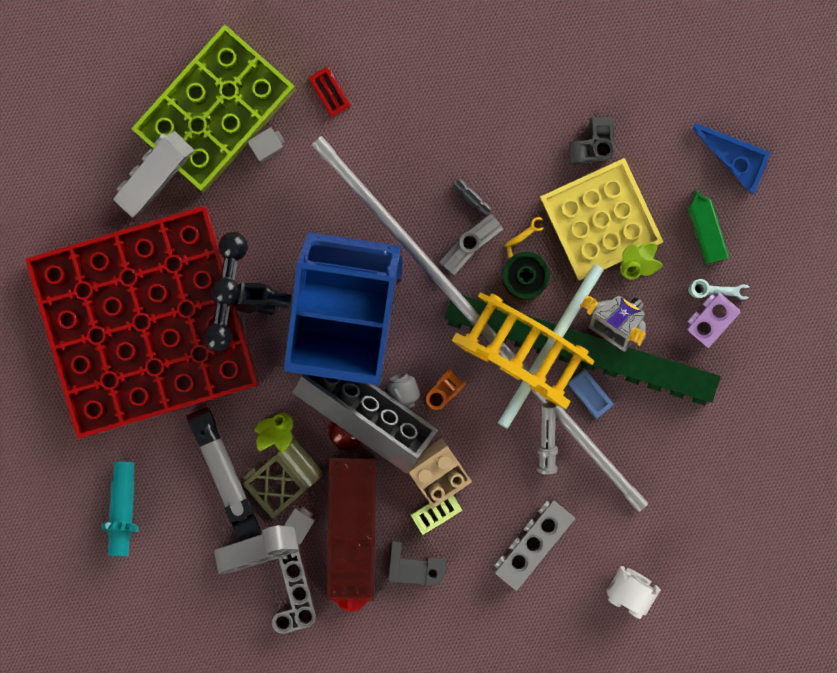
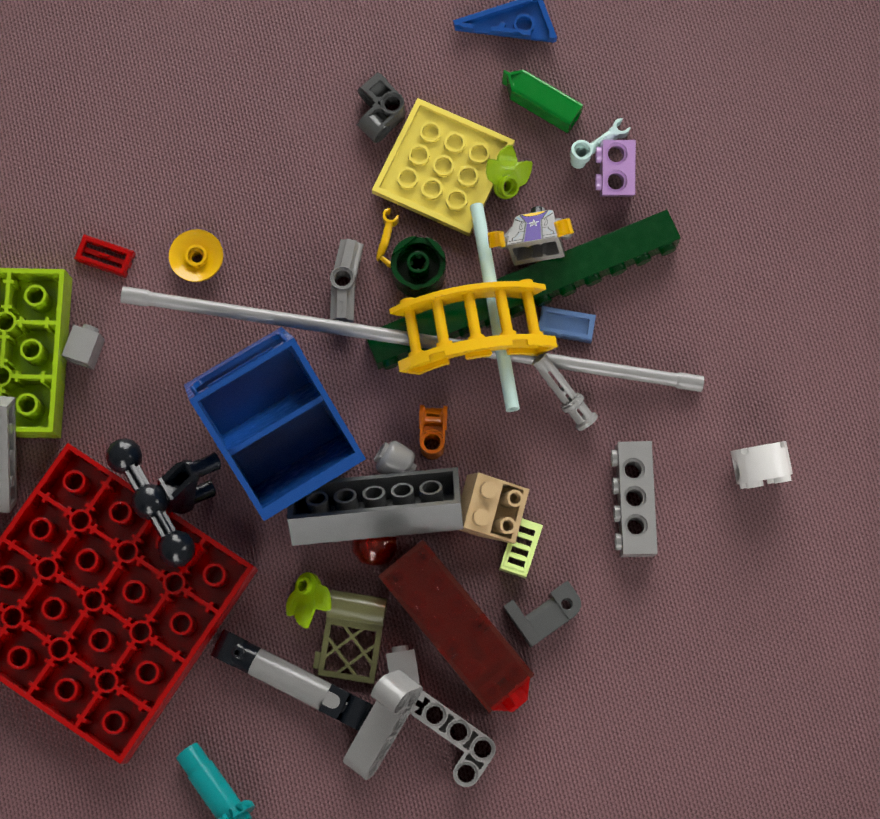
camera: 40 degrees left, 10 degrees down
(391, 132) = (189, 245): none -> yellow dish
(472, 197) = (312, 242): dark grey axle -> none

